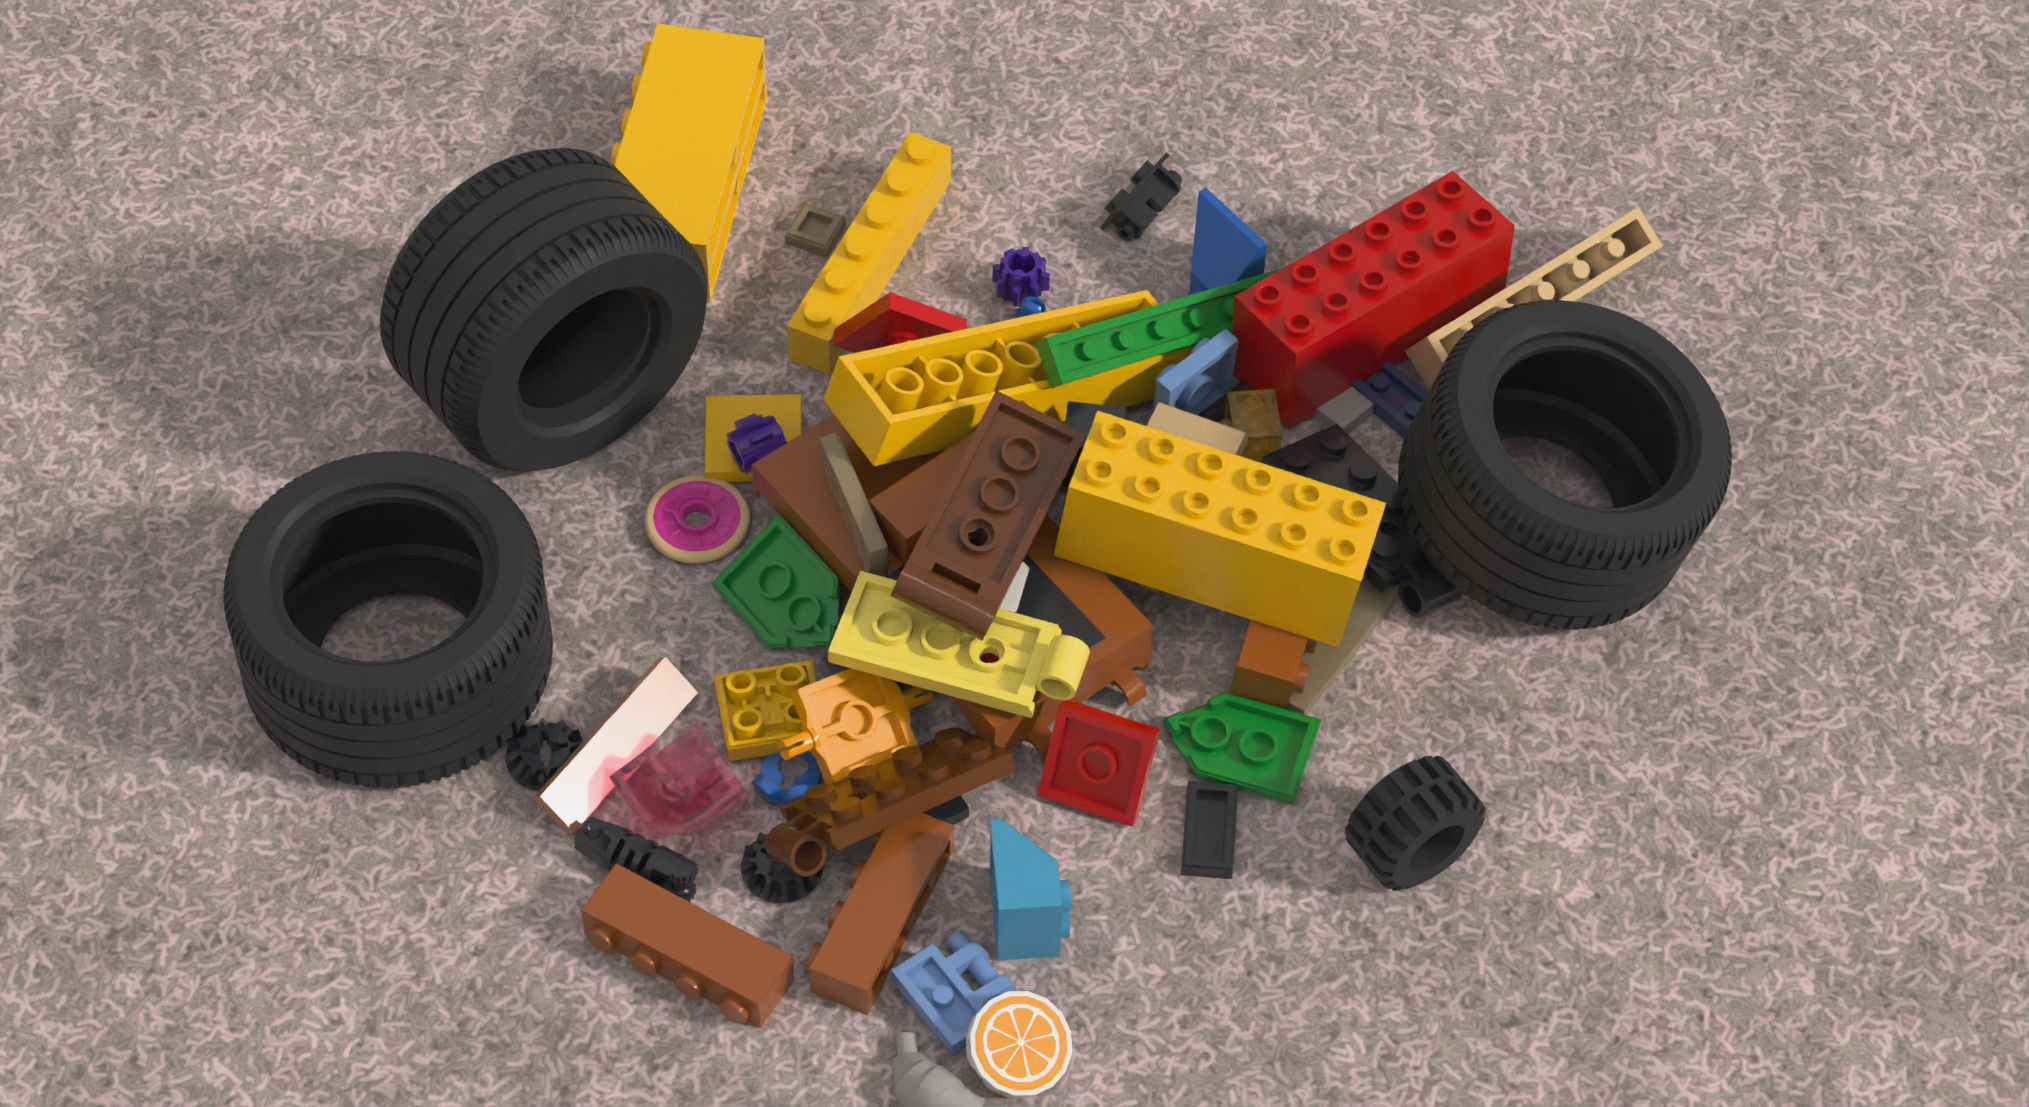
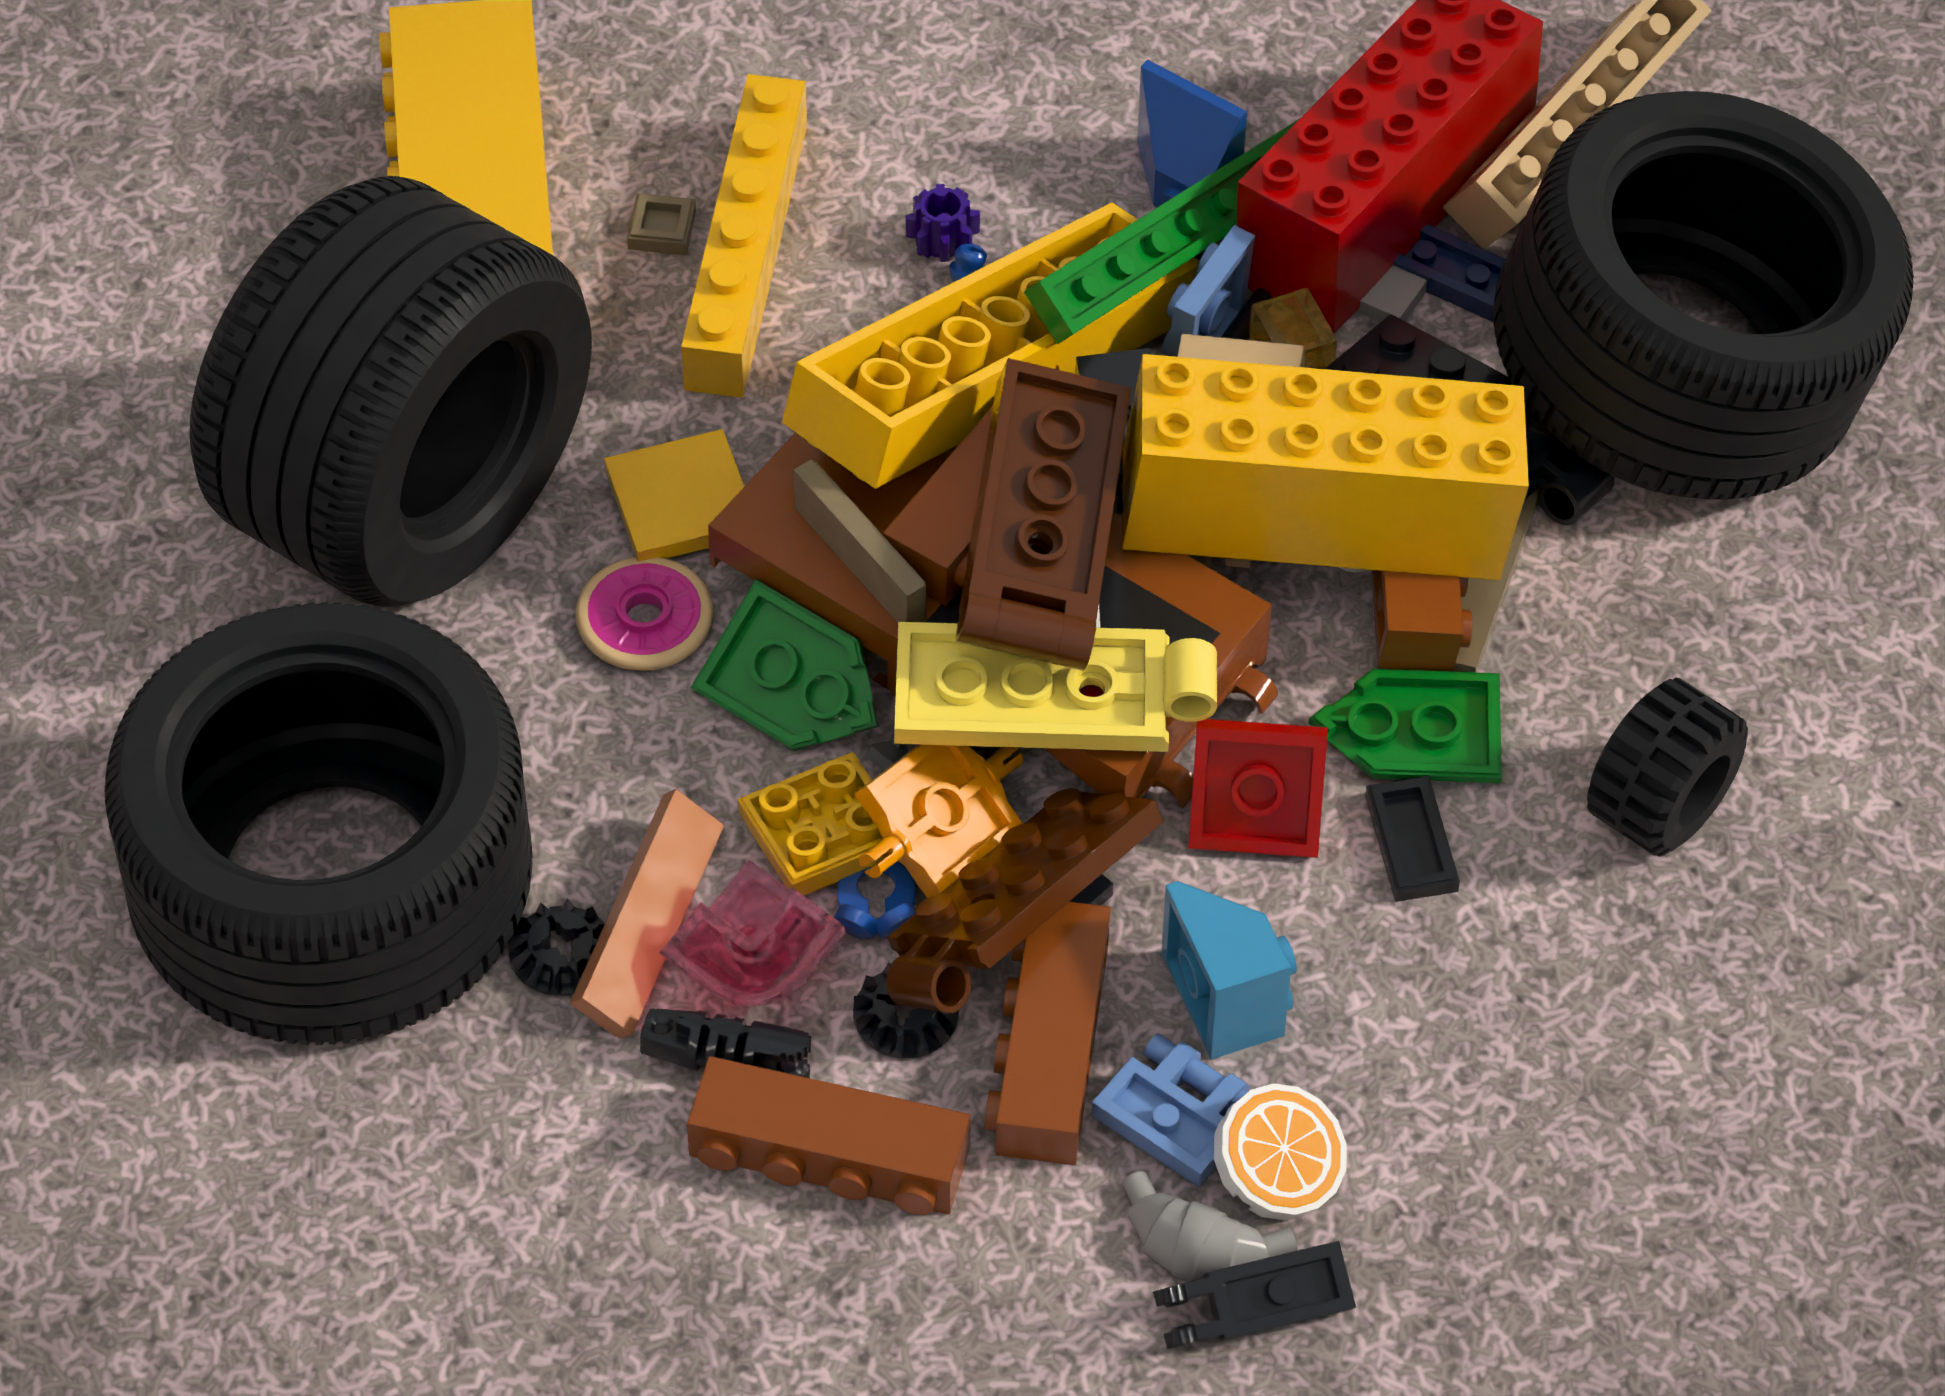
camera: 15 degrees left, 0 degrees up
(754, 439) = (695, 498): dark purple gear -> none
(892, 322) = (820, 314): red tile -> none
(1130, 211) = (1042, 110): black hinge -> none

